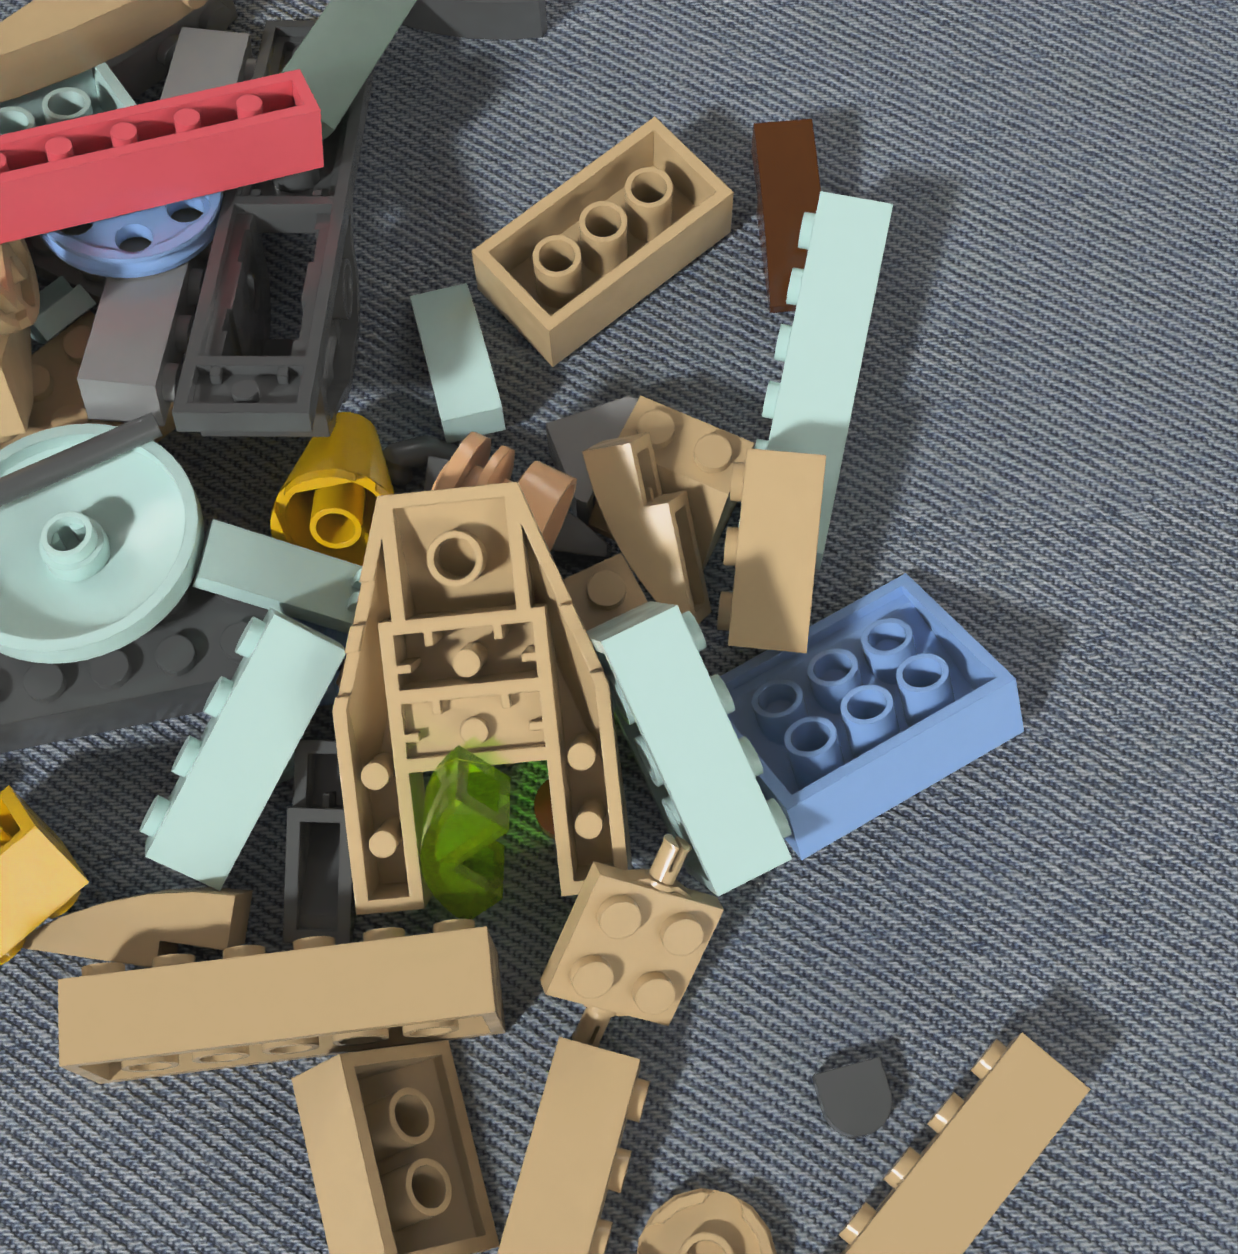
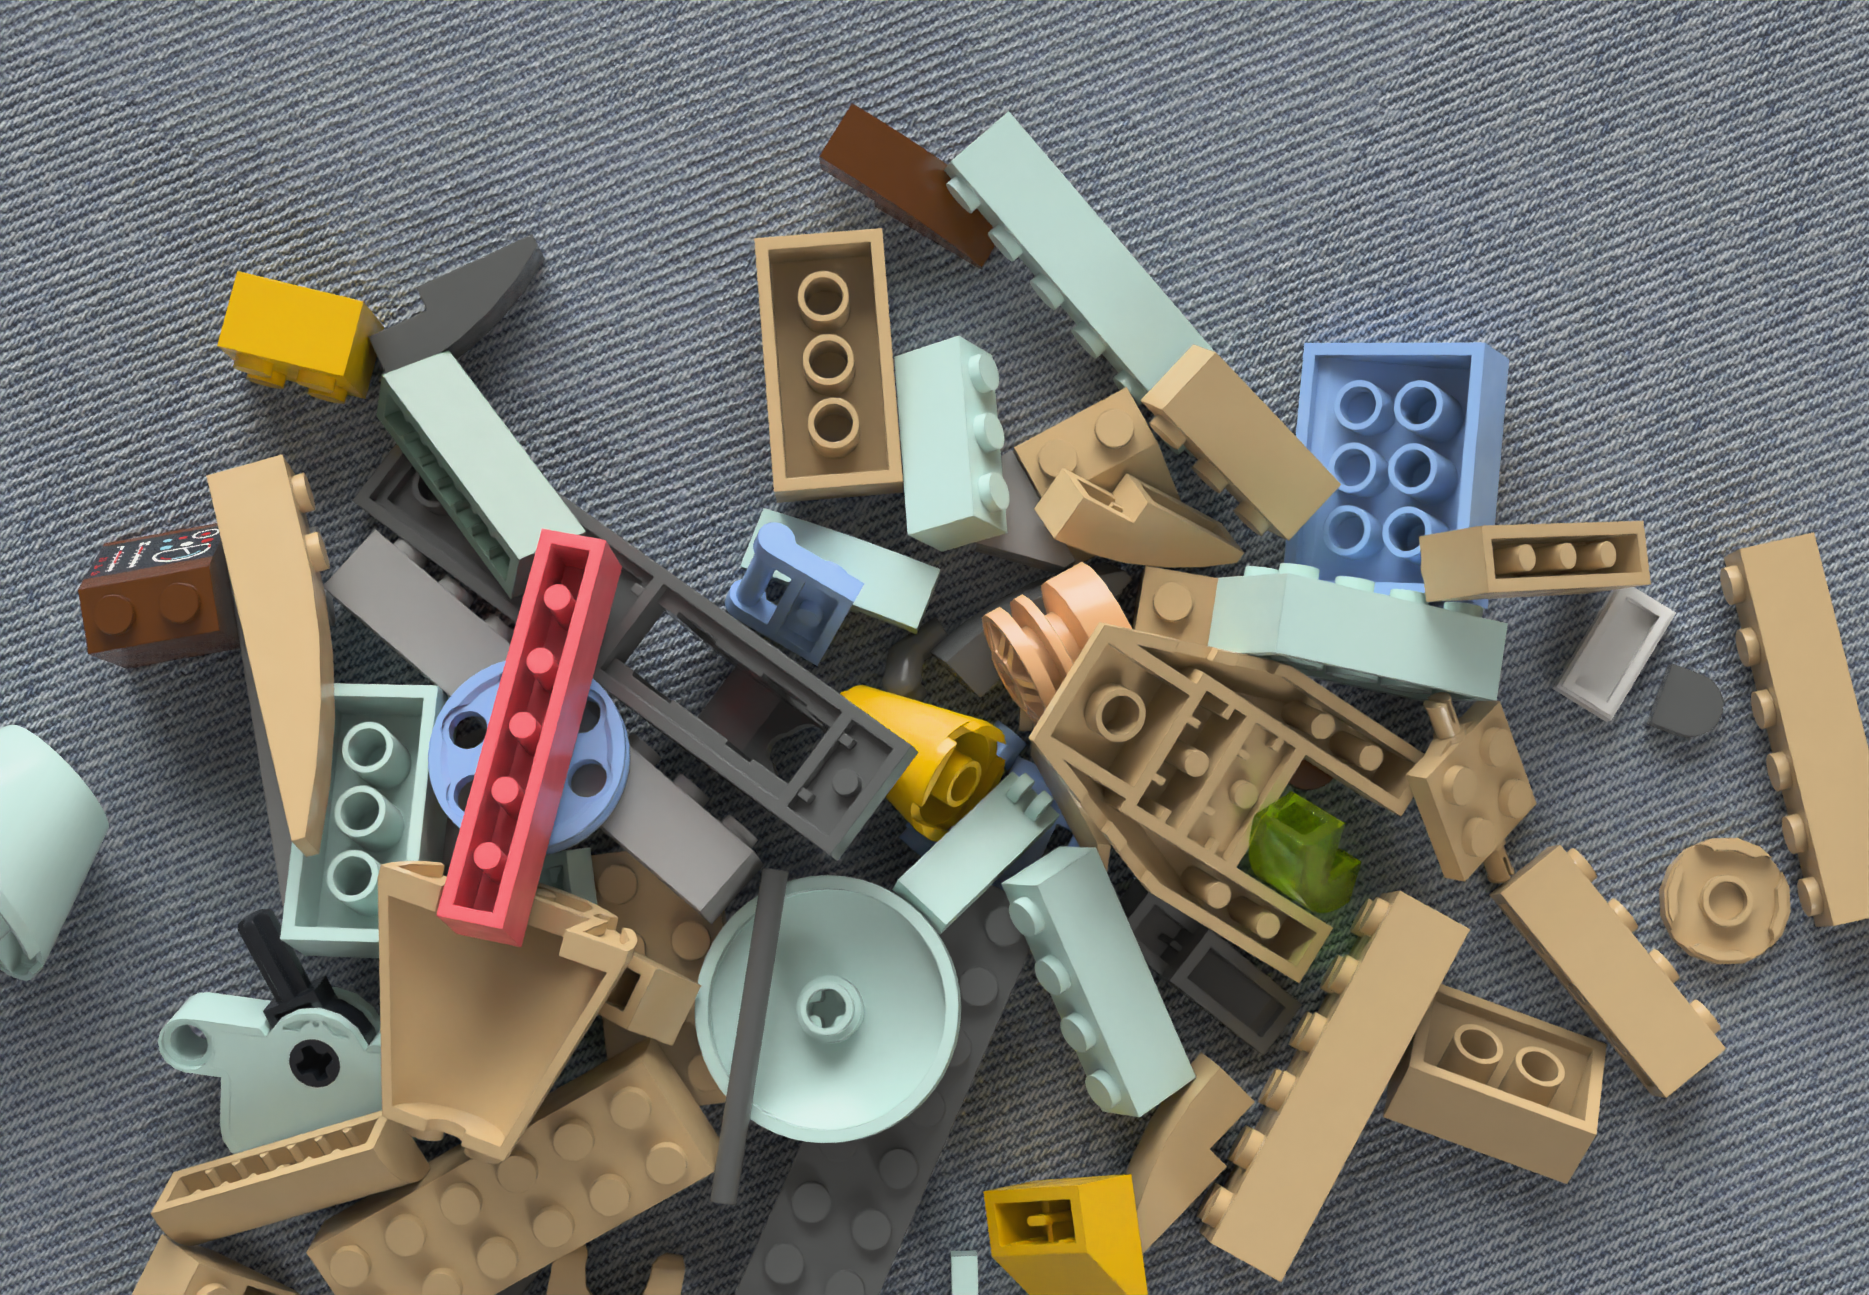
camera: 60 degrees left, 15 degrees up
(406, 325) = (810, 606): none -> light blue plate
(607, 354) = (951, 444): none -> light aqua brick
(853, 1001) = (1614, 651): none -> white tile
(865, 842) = (1533, 560): none -> tan brick

